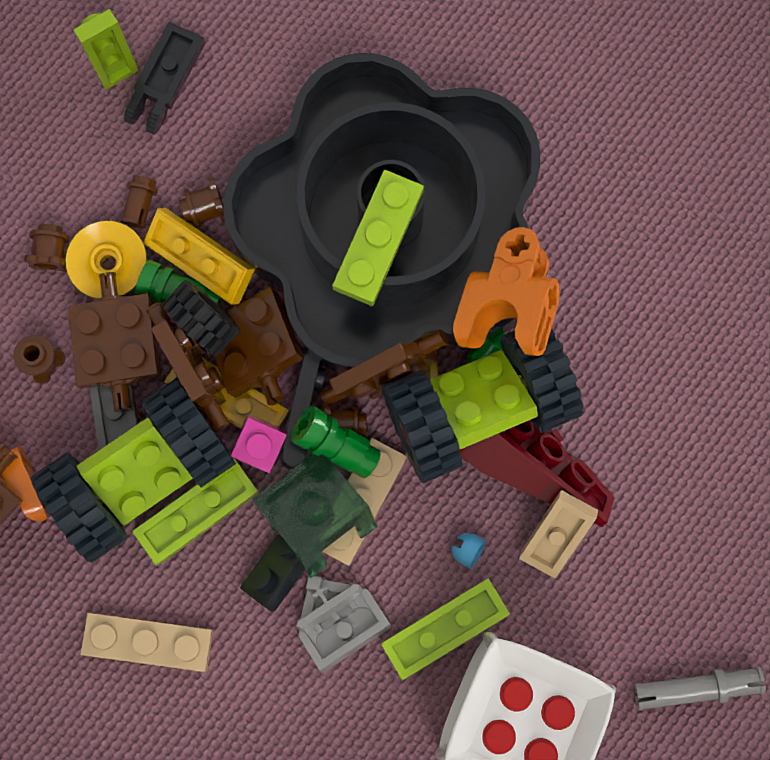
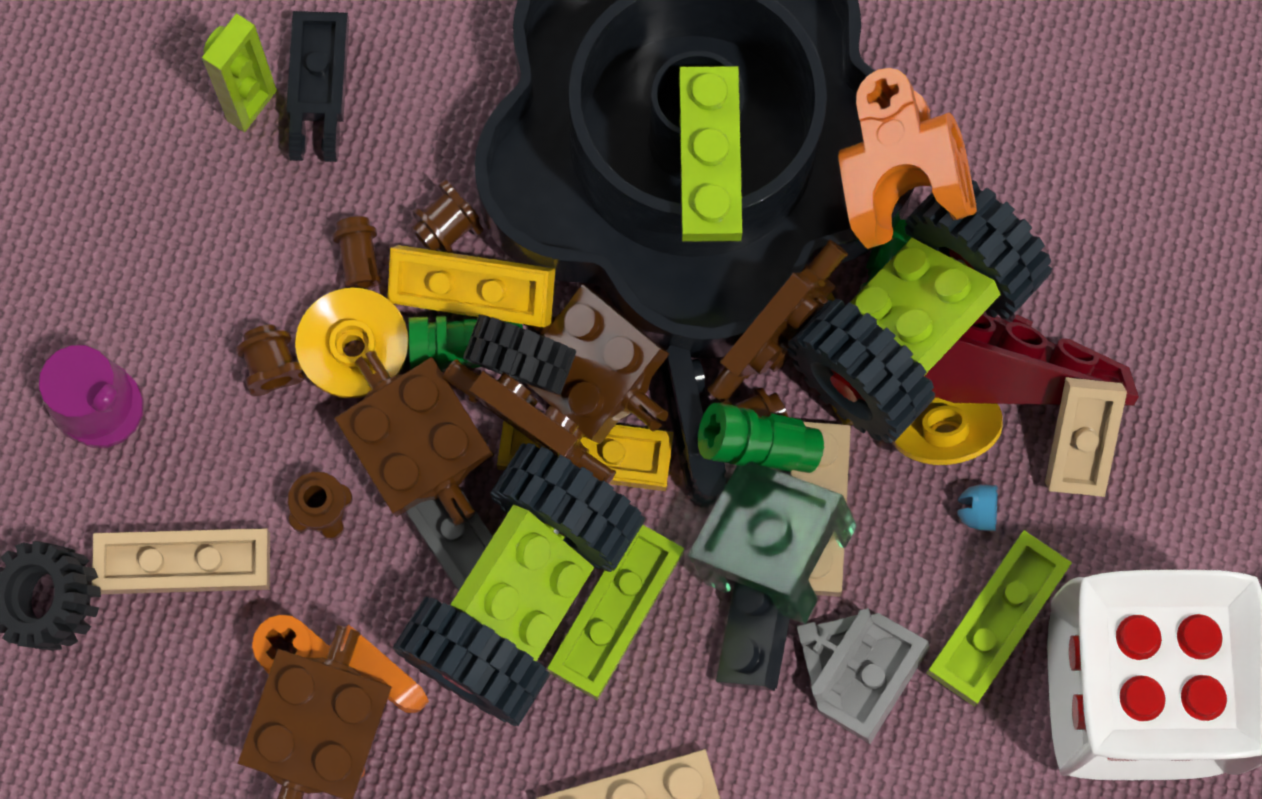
camera: 25 degrees left, 5 degrees down
(258, 443) = (661, 482): dark pink brick -> none
(469, 492) = (951, 432): none -> yellow dish

